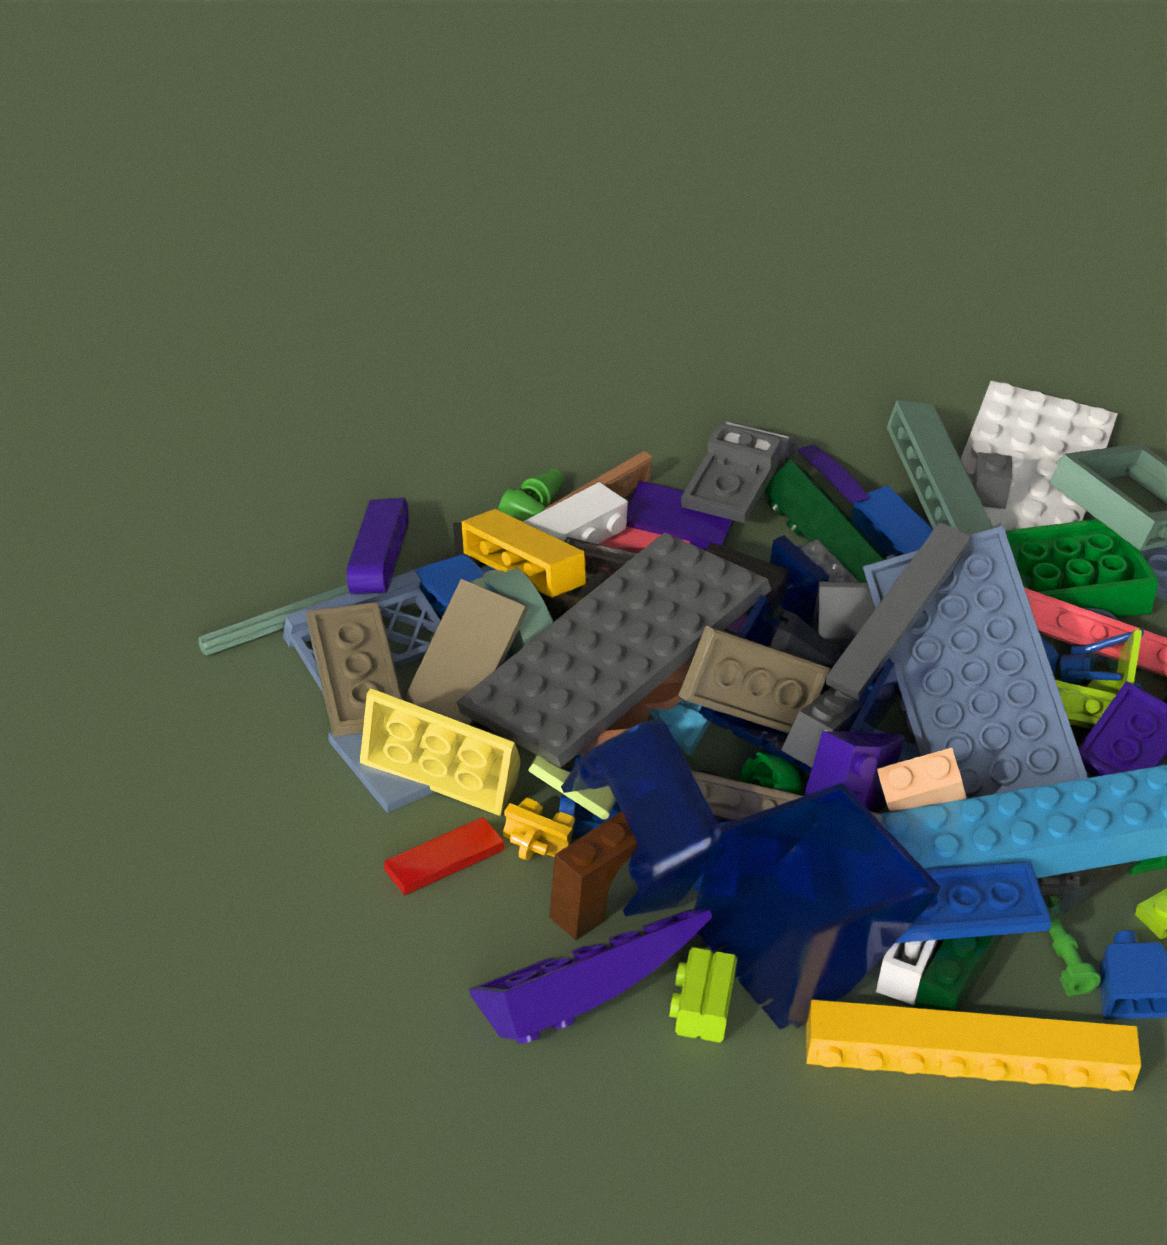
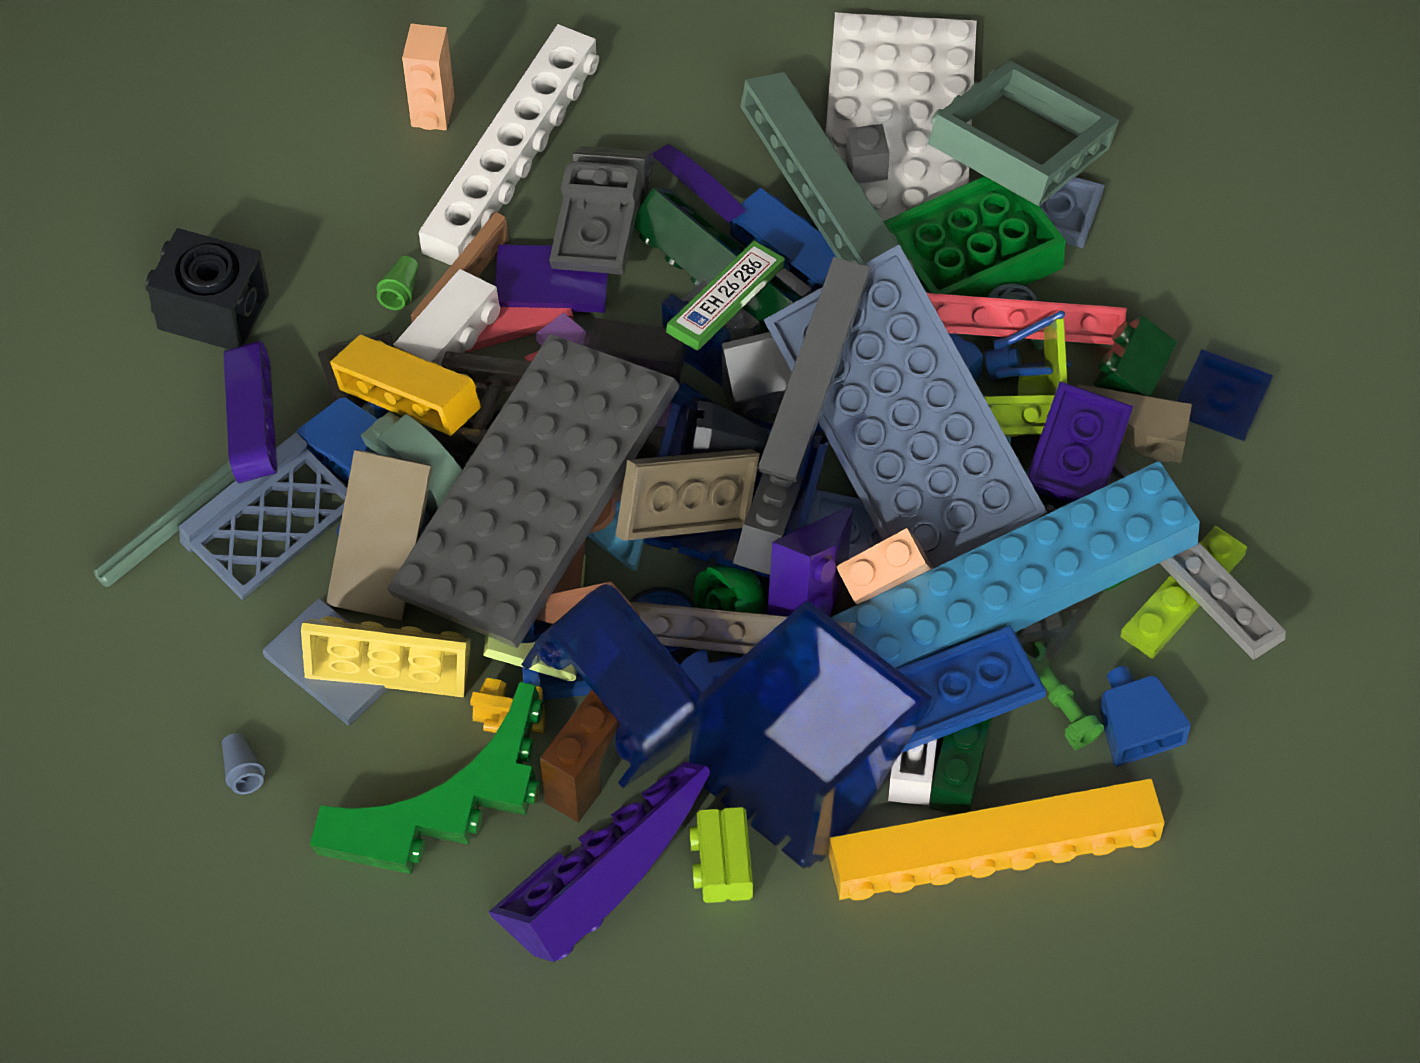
camera: 10 degrees left, 15 degrees up
(279, 817) = (241, 765): none -> sand blue cone
(350, 660) = (268, 568): dark tan tile -> none
(371, 449) = (207, 289): none -> black brick
(443, 855) = (422, 760): red tile -> none
(457, 893) = (495, 779): none -> green arch
(519, 504) = (385, 314): bright green cone -> none
(615, 338) = (428, 76): none -> light nougat brick
(674, 407) = (510, 143): none -> white brick
(832, 546) = (725, 295): none -> tile

